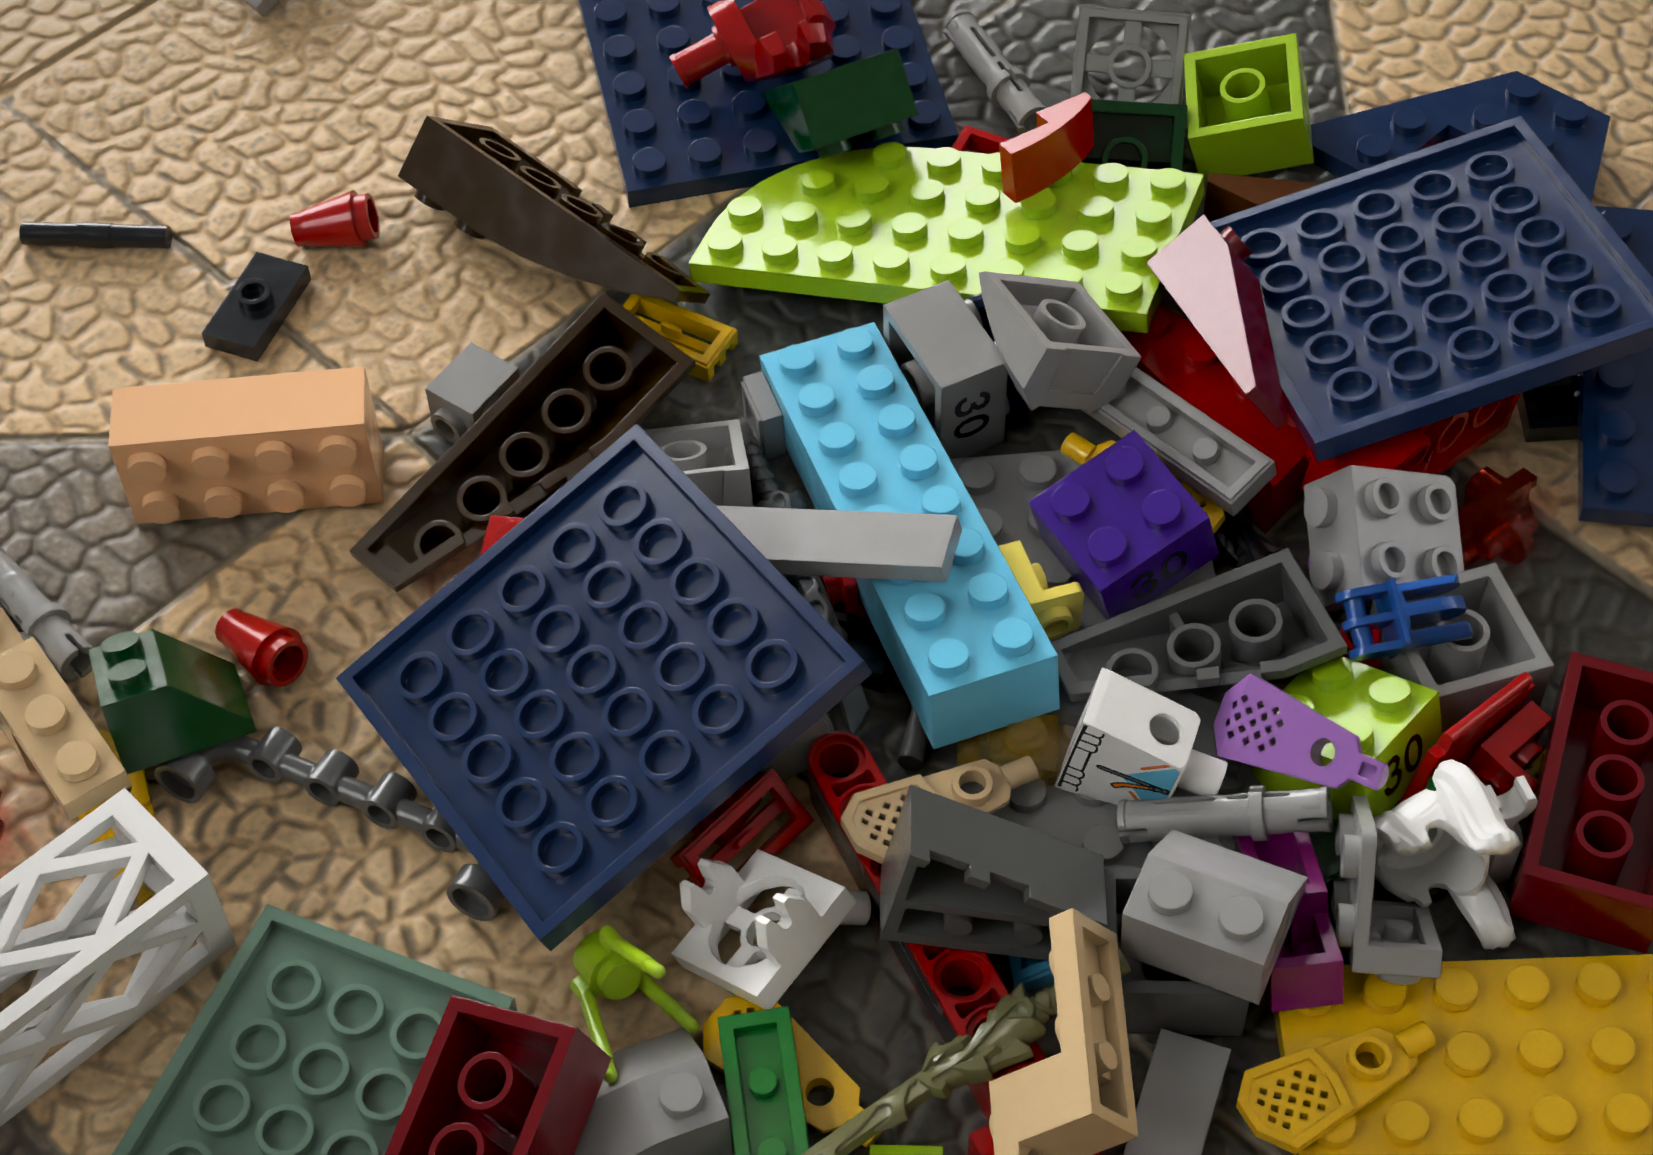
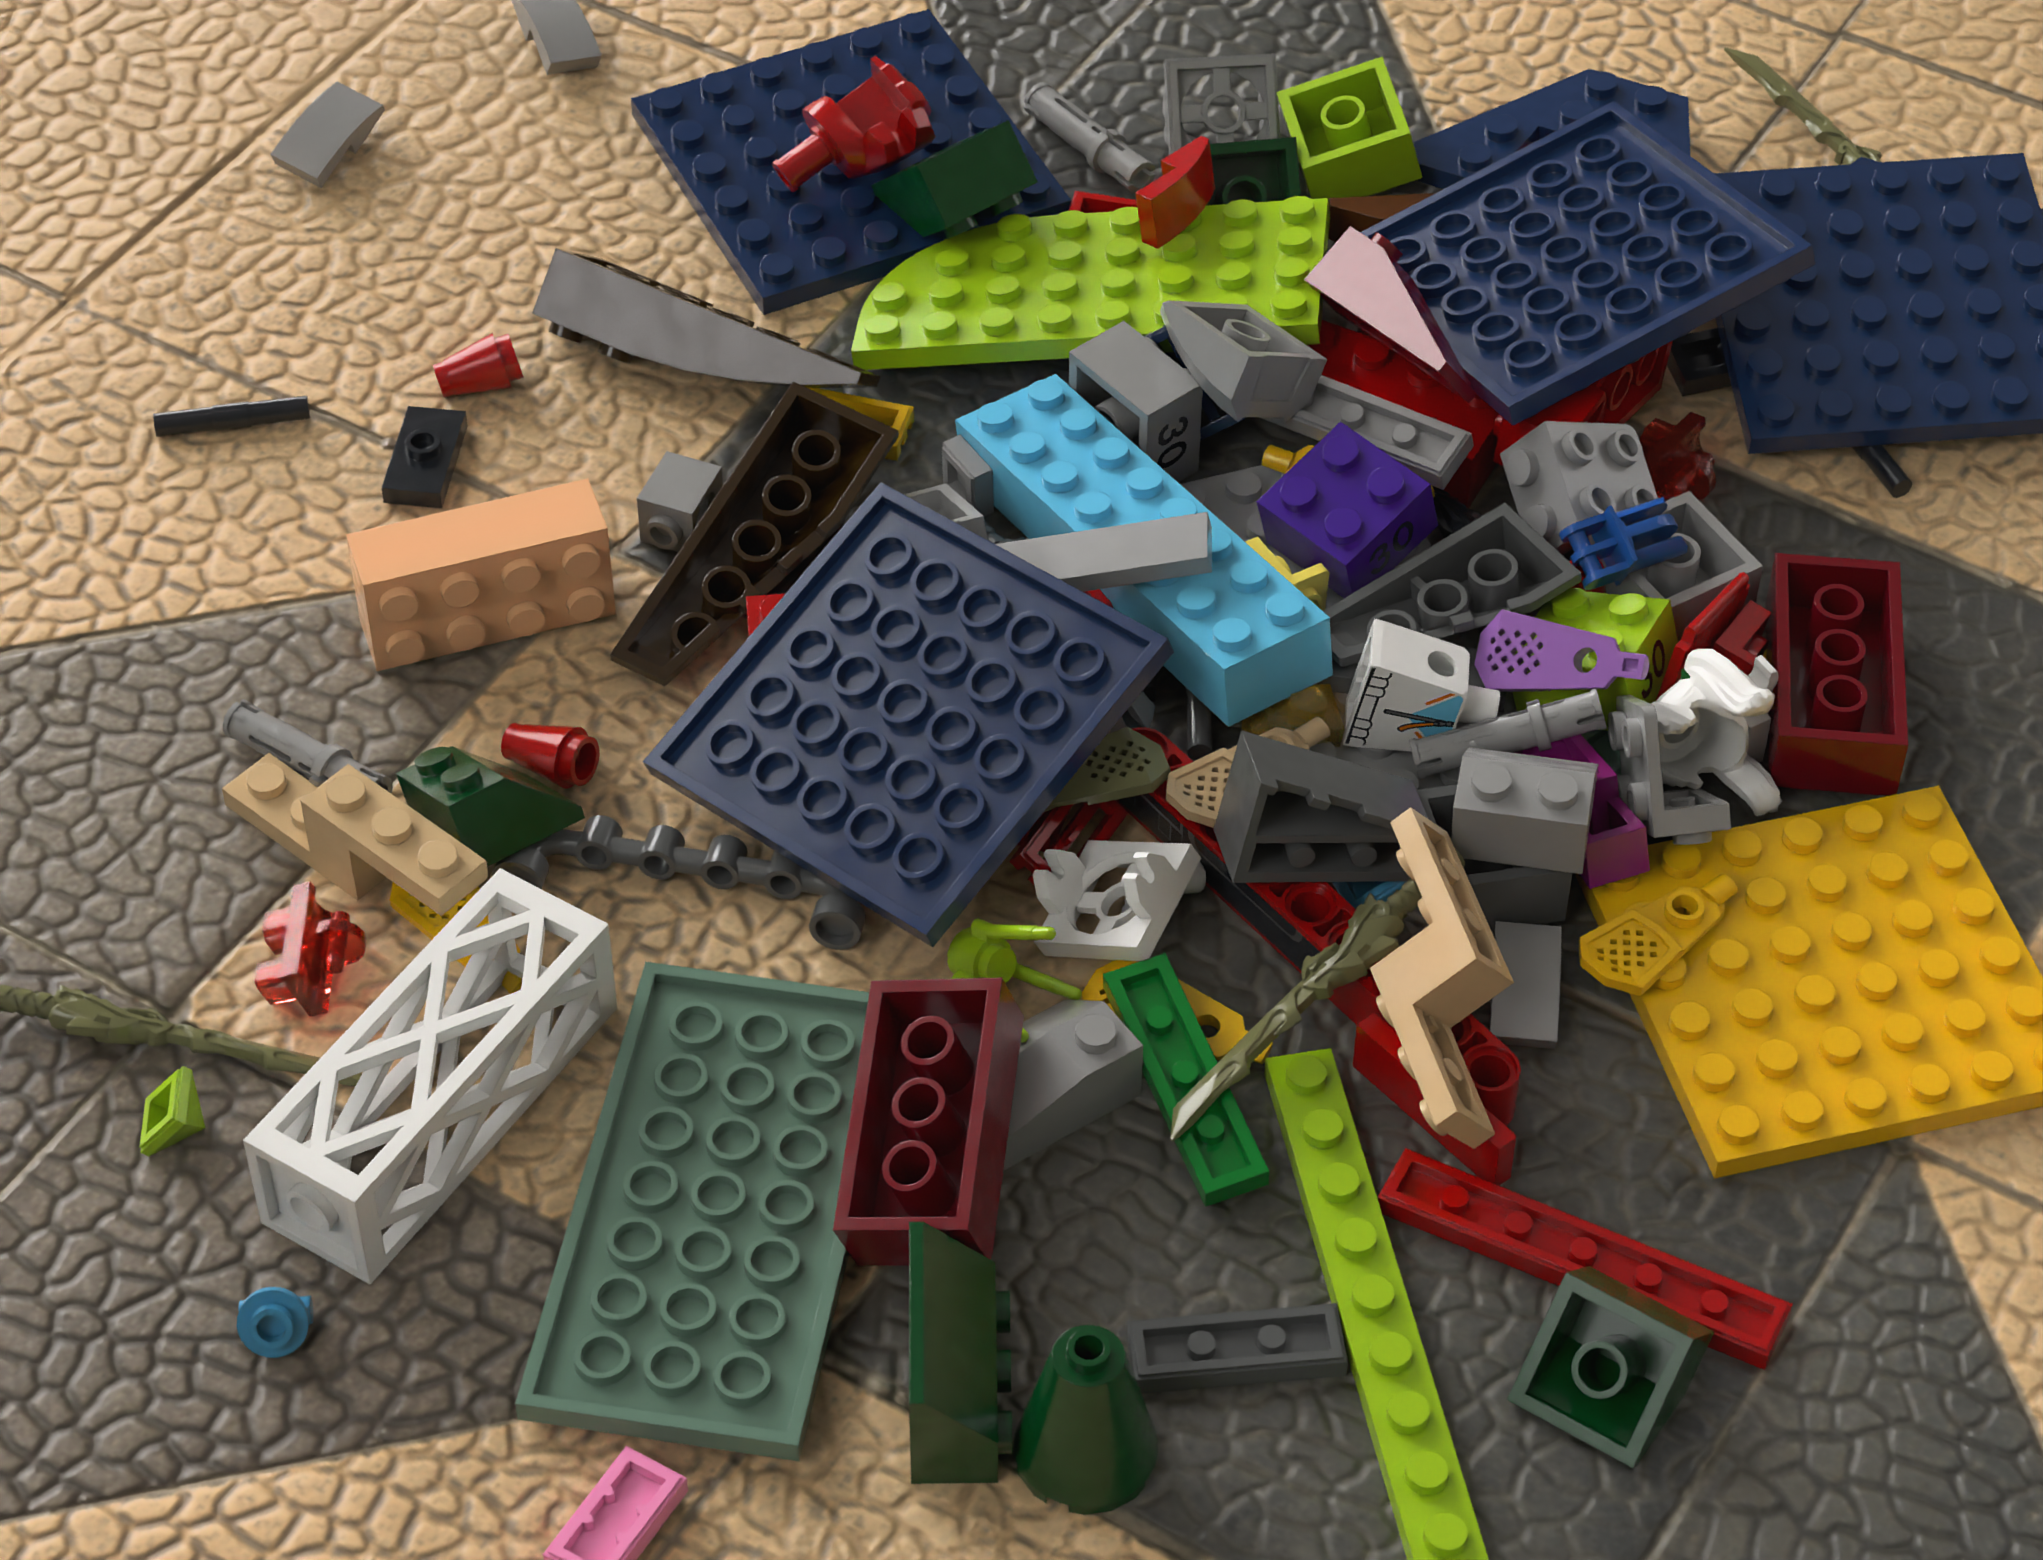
camera: 15 degrees left, 5 degrees down
(837, 779) = (1118, 768): none -> olive piece

